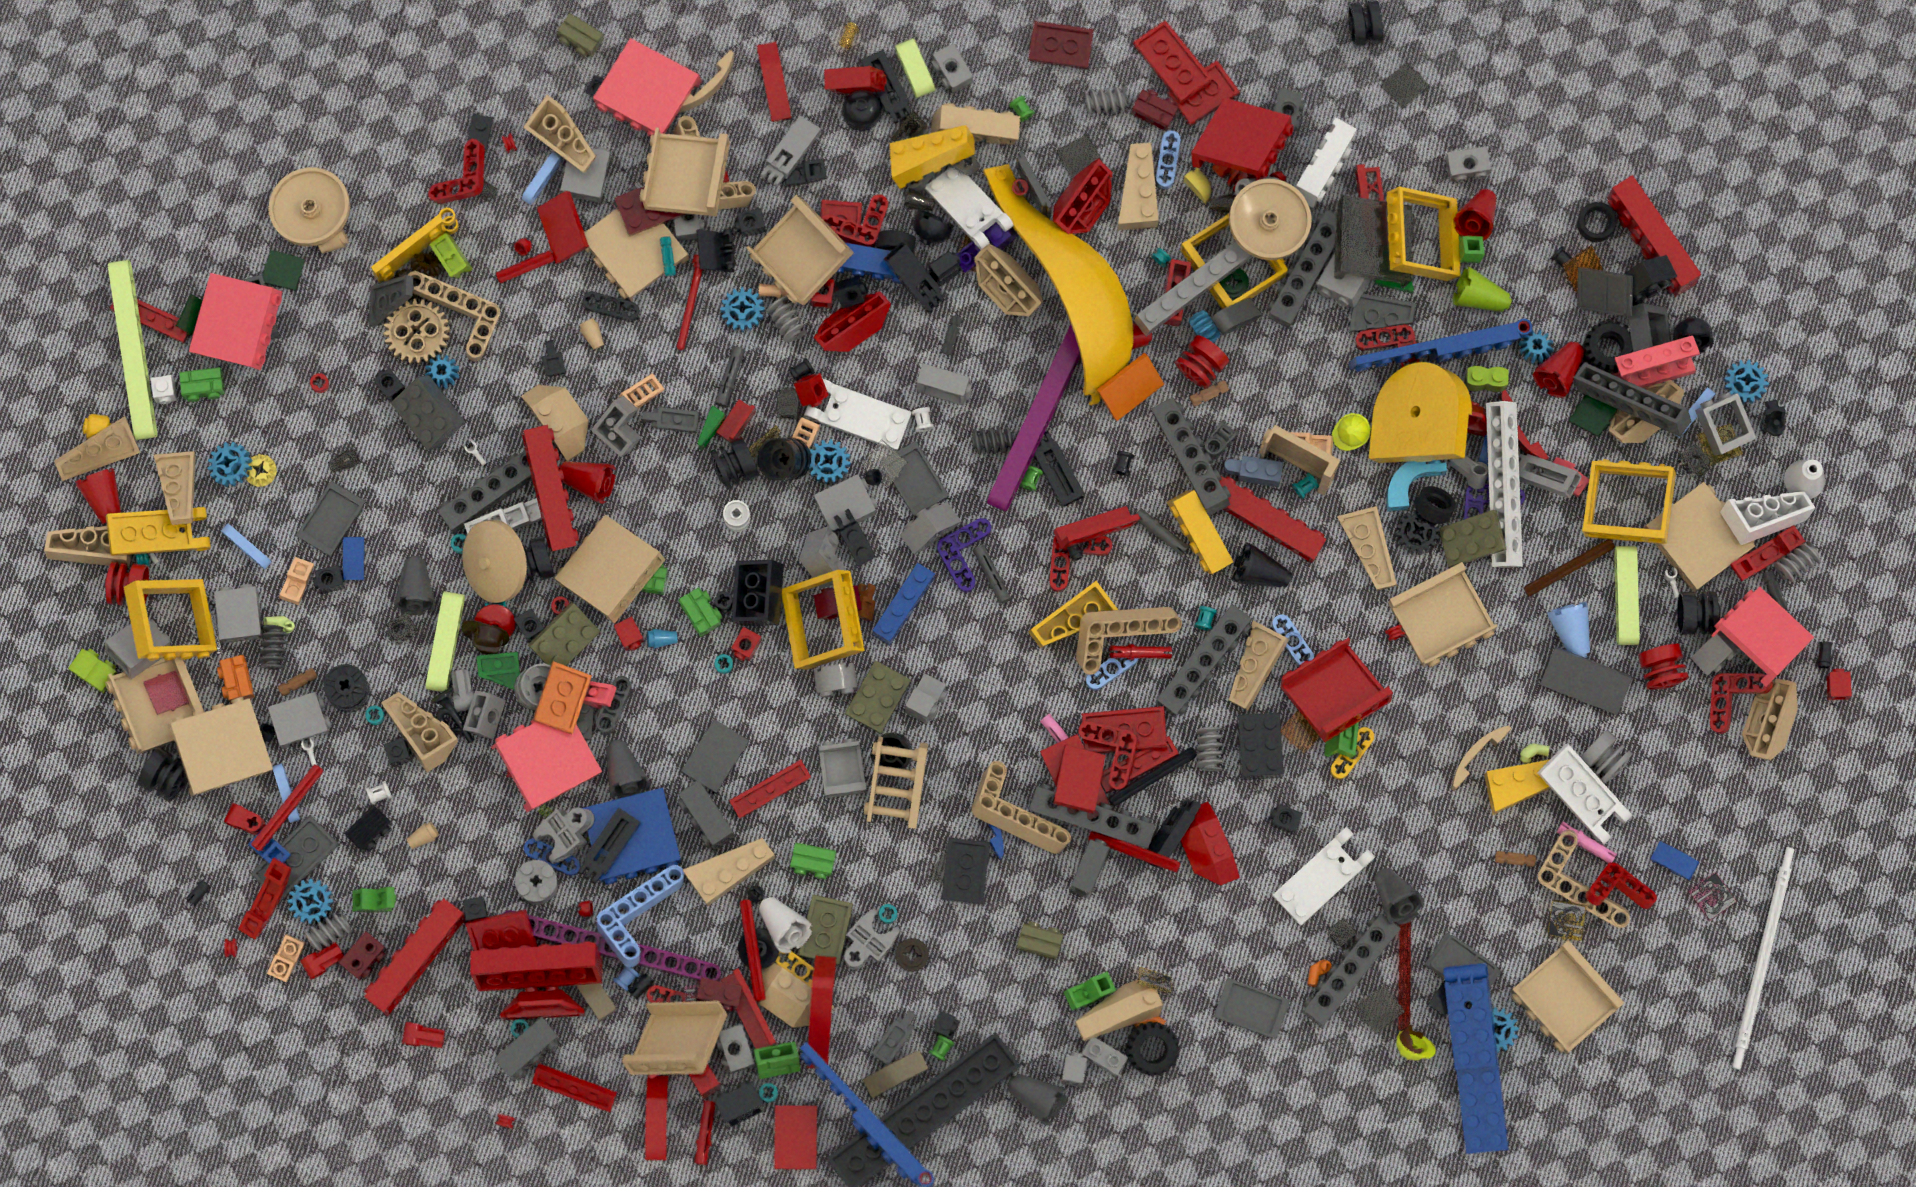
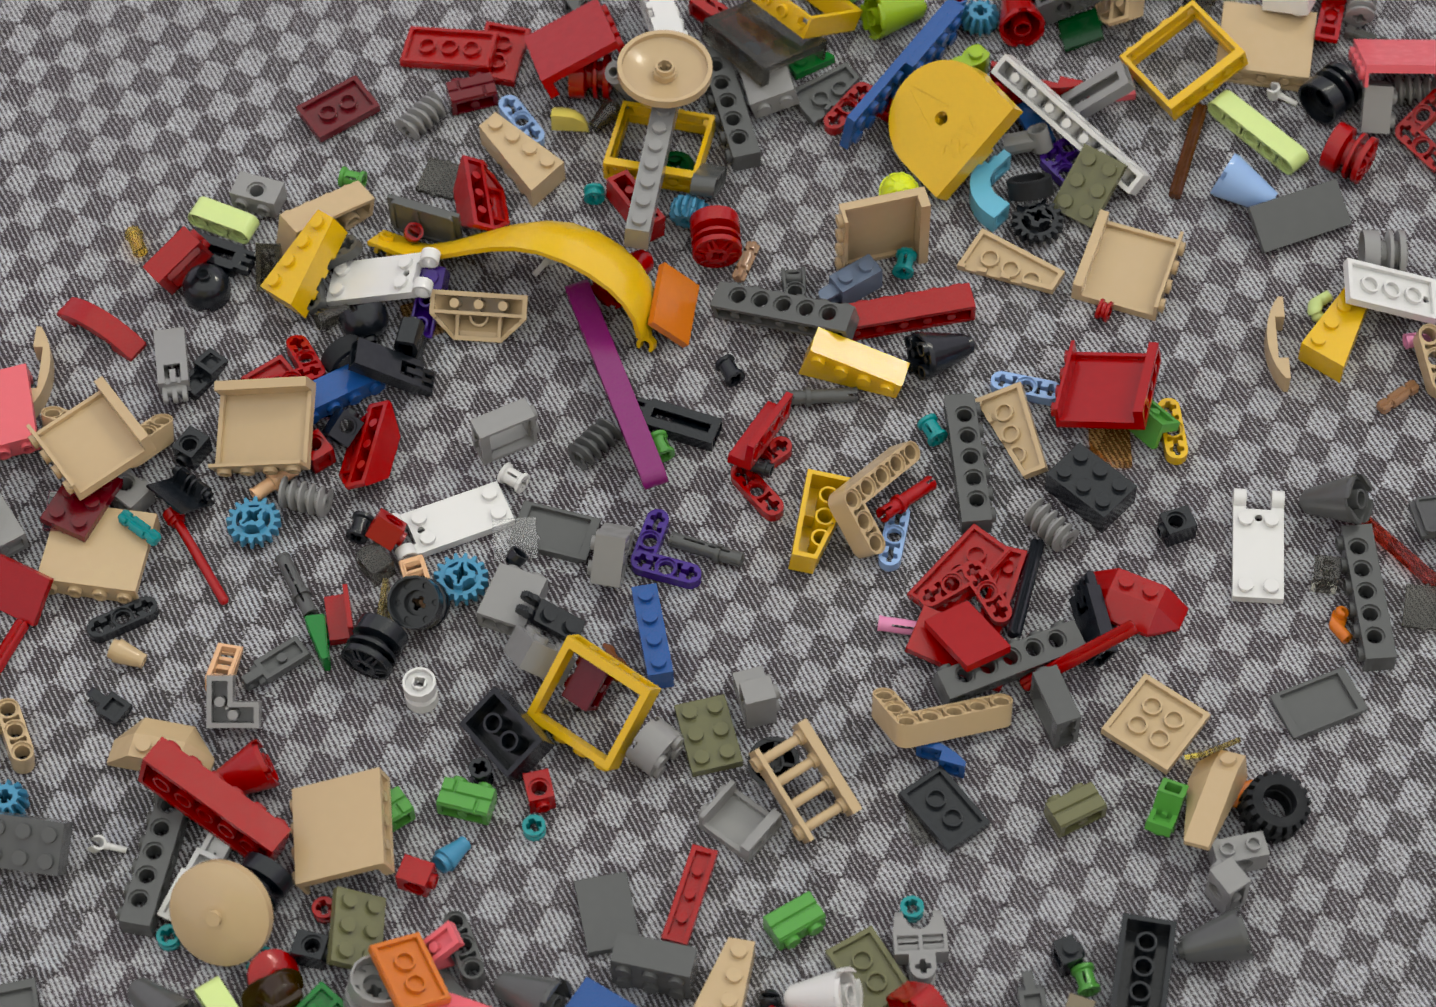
camera: 40 degrees left, 20 degrees down
(906, 947) = (973, 914): dark brown gear -> none
(951, 335) = (469, 395): dark grey axle -> none
(1142, 932) = (1155, 723): none -> tan plate

